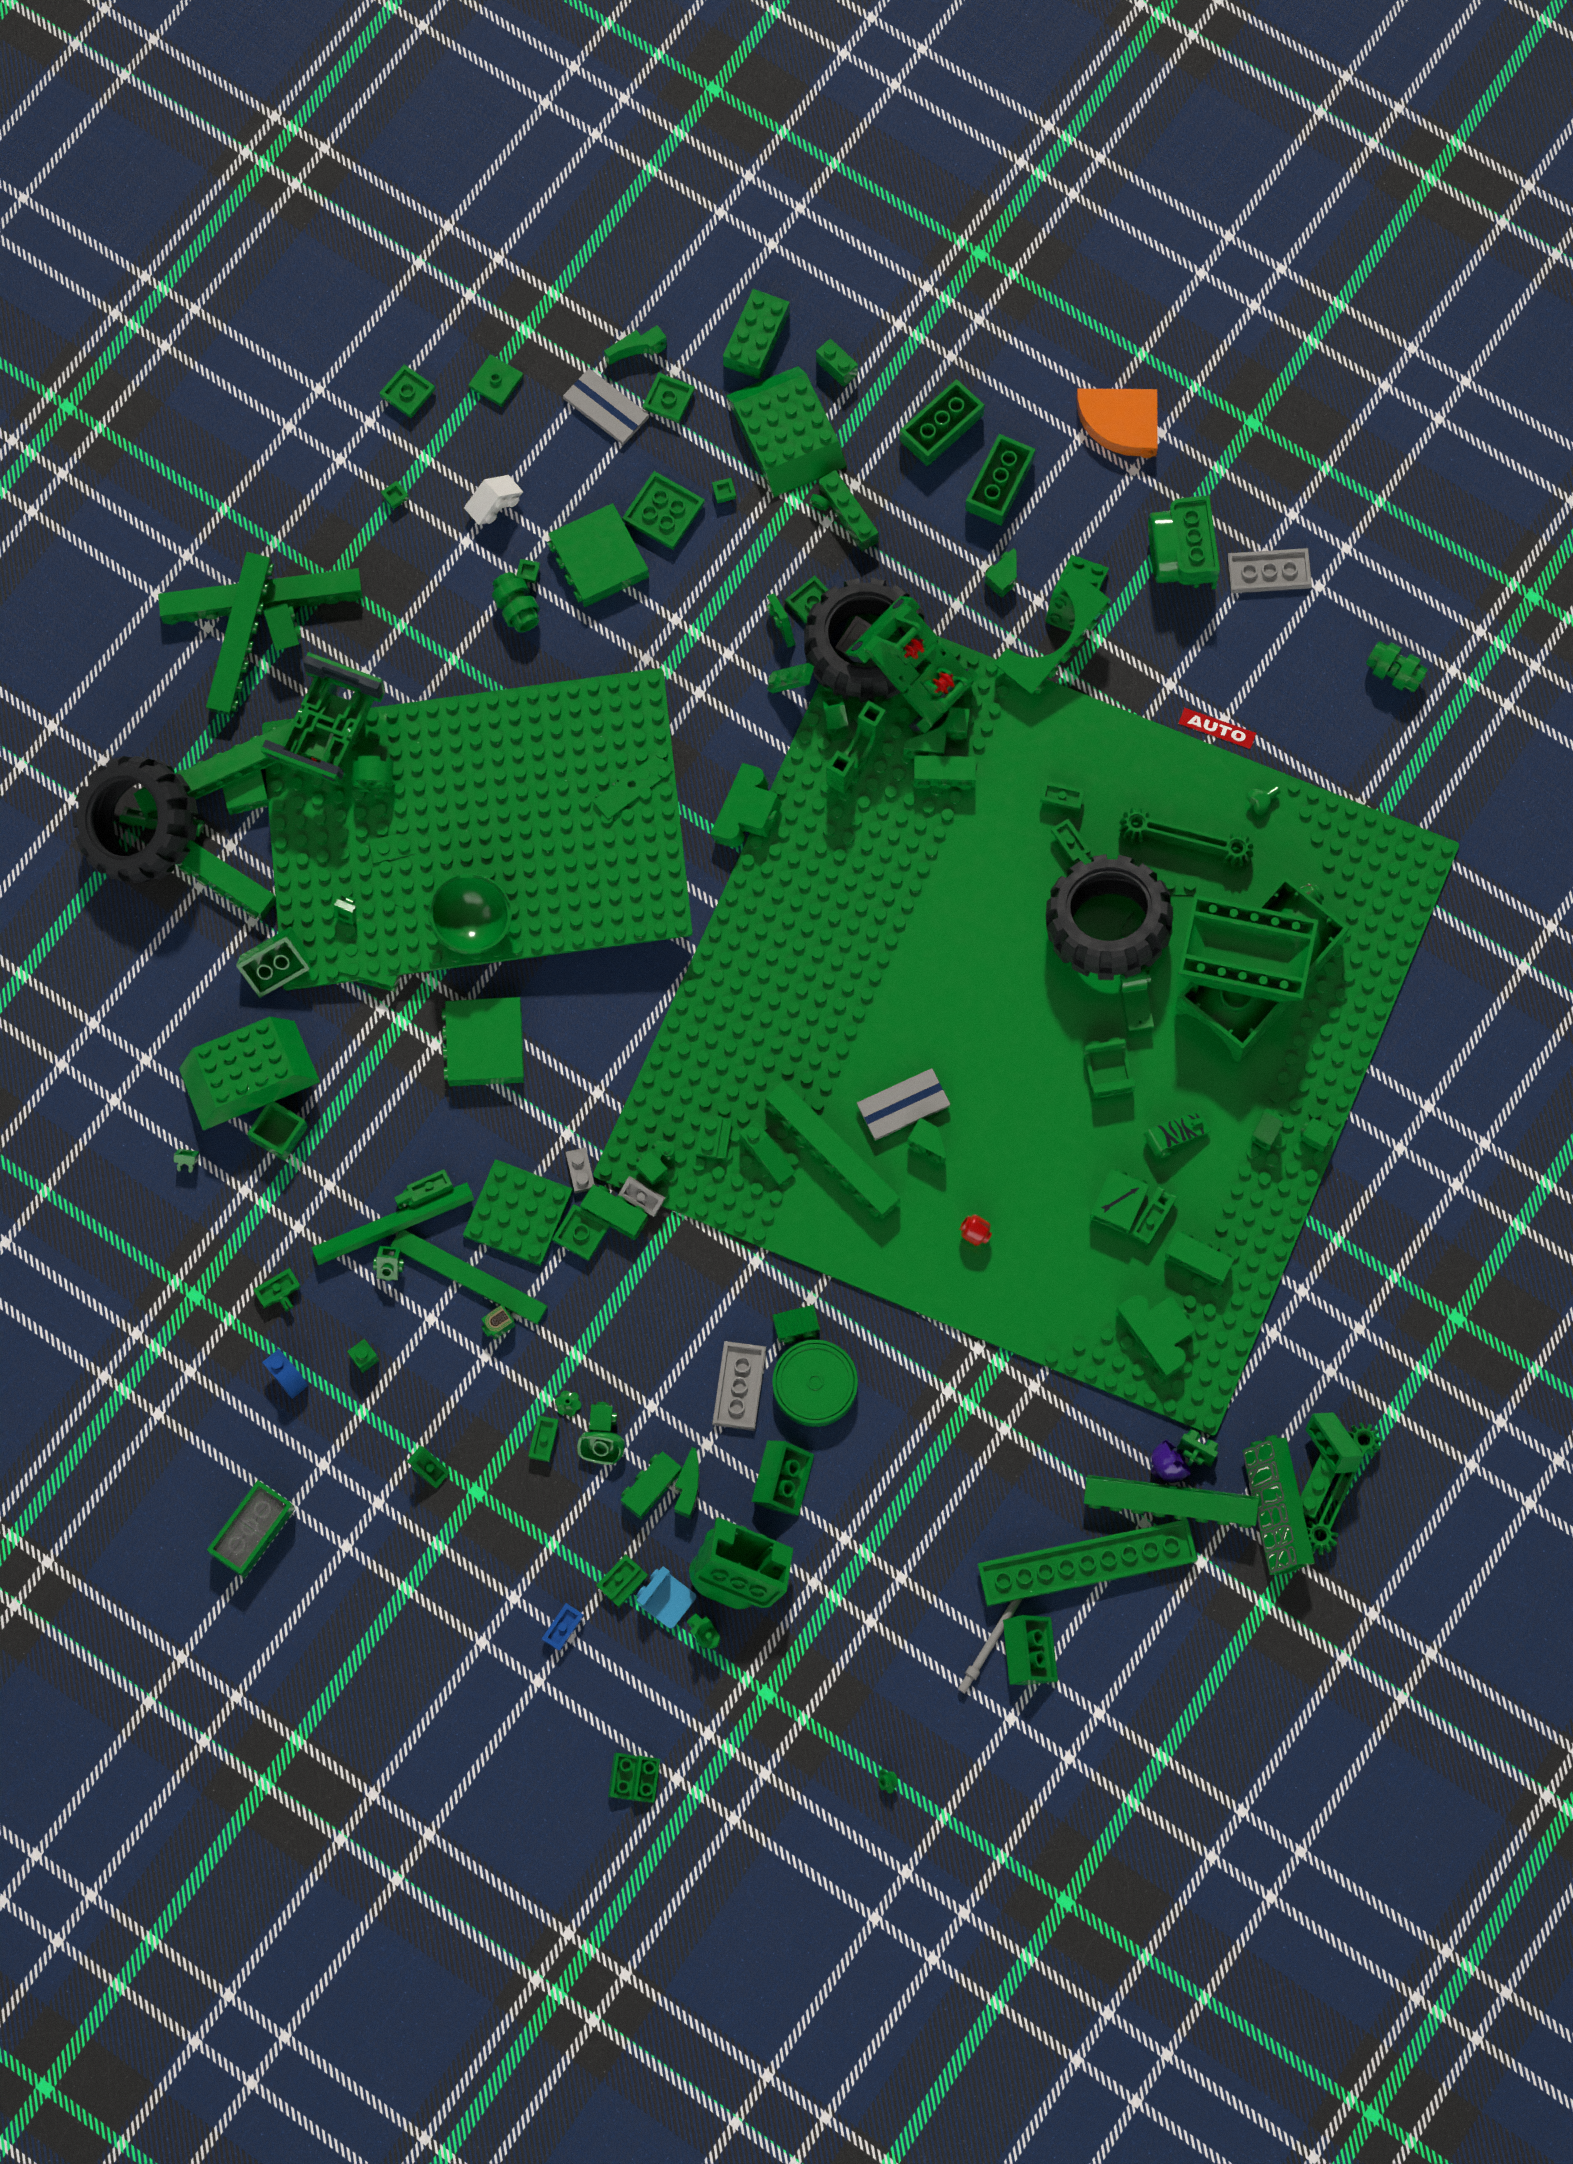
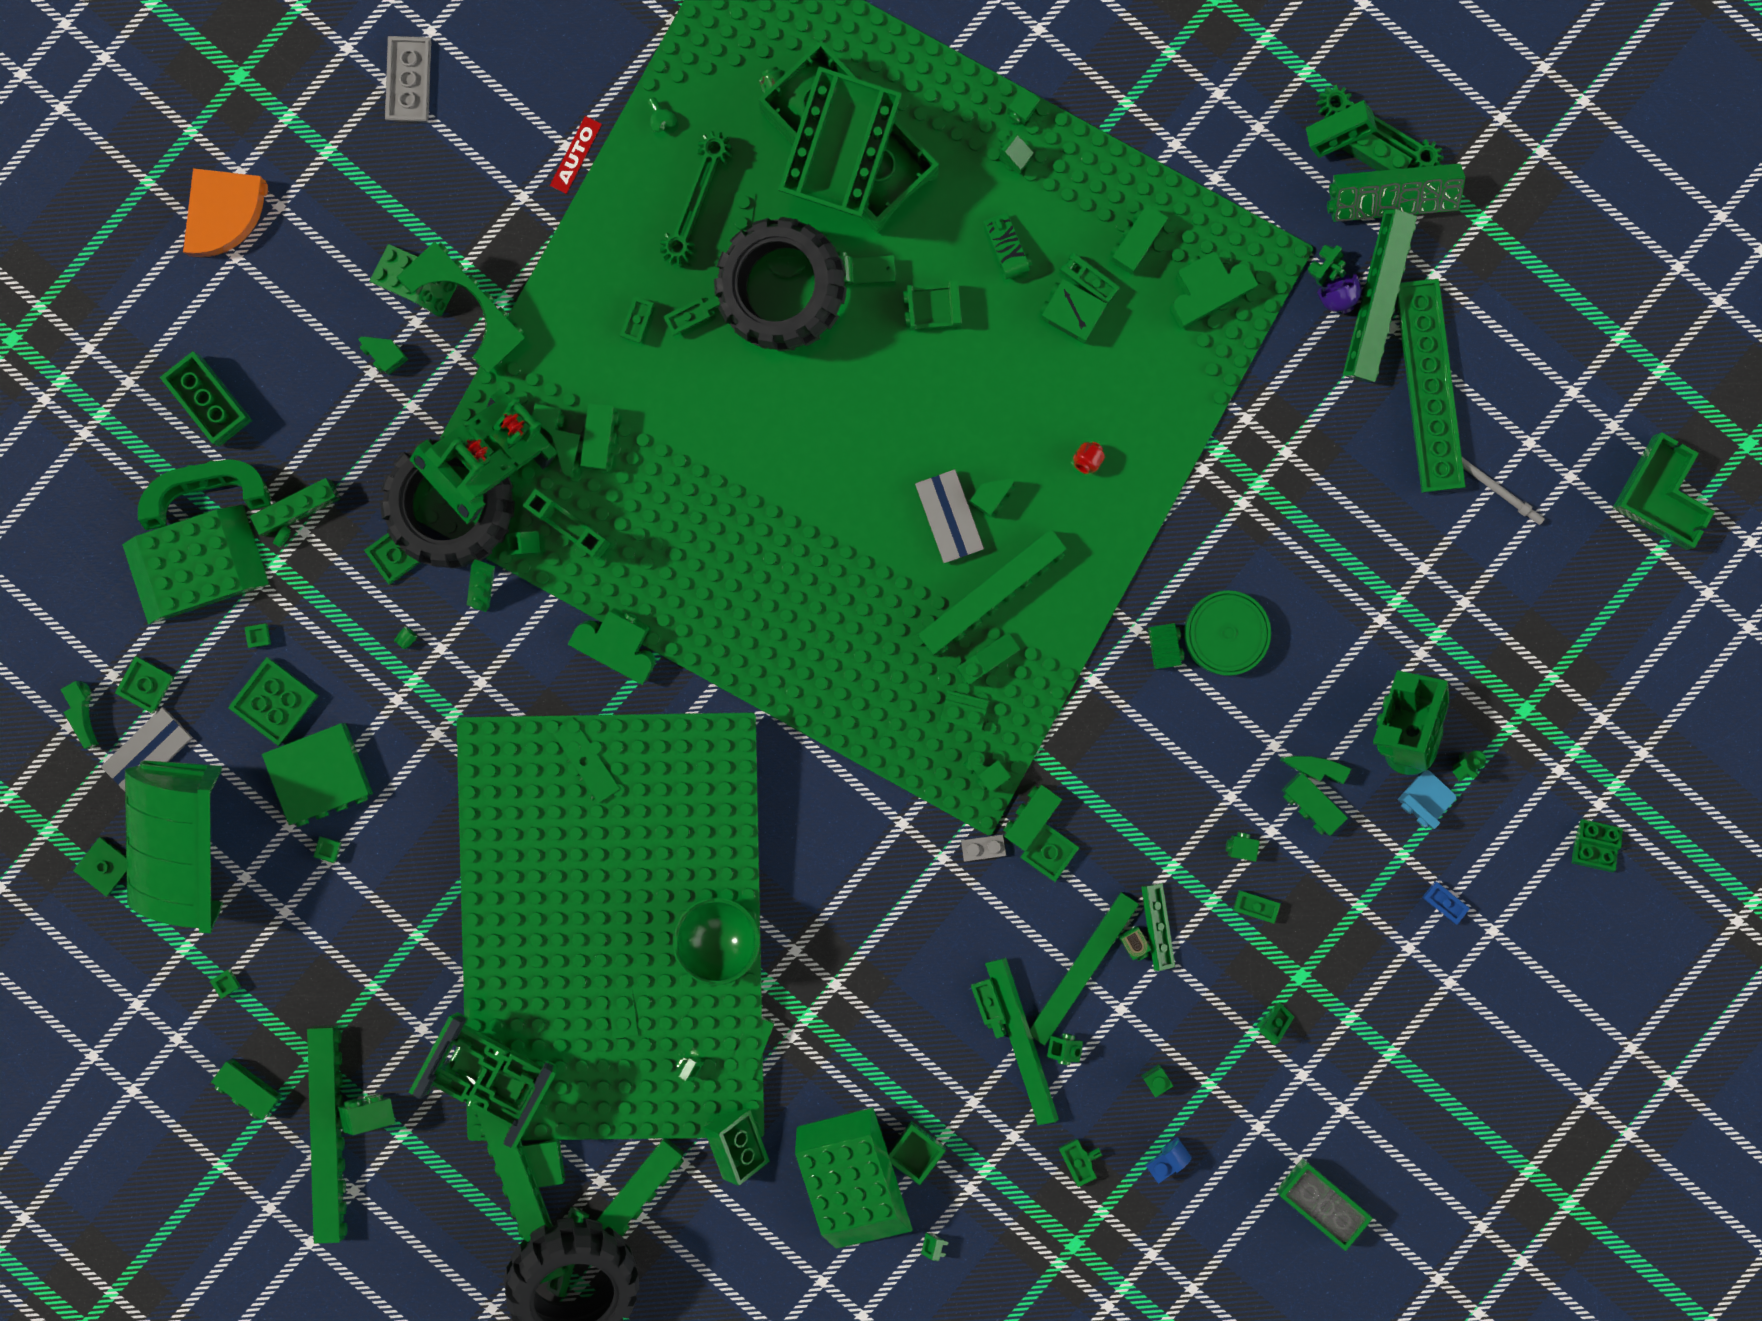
camera: 90 degrees left, 15 degrees up
(239, 634) = (369, 1159): green brick -> none
(297, 522) = (246, 1089): none -> green brick
(372, 773) = (543, 1030): green brick -> none
(407, 391) = (106, 962): green plate -> none
(483, 1041) = (840, 935): green brick -> none
(491, 497) = (242, 881): white brick -> none
(512, 596) = (371, 862): green piece -> none
(516, 1343) = (1158, 927): none -> green plate
(518, 1212) = (1021, 914): green plate -> none
(522, 427) = (170, 843): none -> green piece
(568, 1408) = (1215, 877): green plant -> none
(601, 1447) = (1272, 850): green piece -> none
(622, 1580) = (1405, 841): green plate -> none
(641, 1196) = (1019, 788): light grey plate -> none
(734, 620) = (405, 638): none -> green hose
(739, 1385) = (1219, 708): light grey tile -> none
(756, 334) = (81, 584): green brick -> none
(781, 619) = (411, 589): green wing -> none
(782, 1477) = (1318, 674): green slope -> none
(836, 362) = (122, 503): green brick -> none
(852, 634) = (440, 515): light grey plate -> none
(866, 420) = (195, 478): none -> green arch
(887, 1780) = (1624, 601): green plate -> none
(998, 1798) = (1654, 494): none -> green piece
(1000, 479) = (278, 344): green brick -> none
(1030, 1650) = (1511, 451): green slope -> none
(1184, 543) = (374, 159): green brick -> none

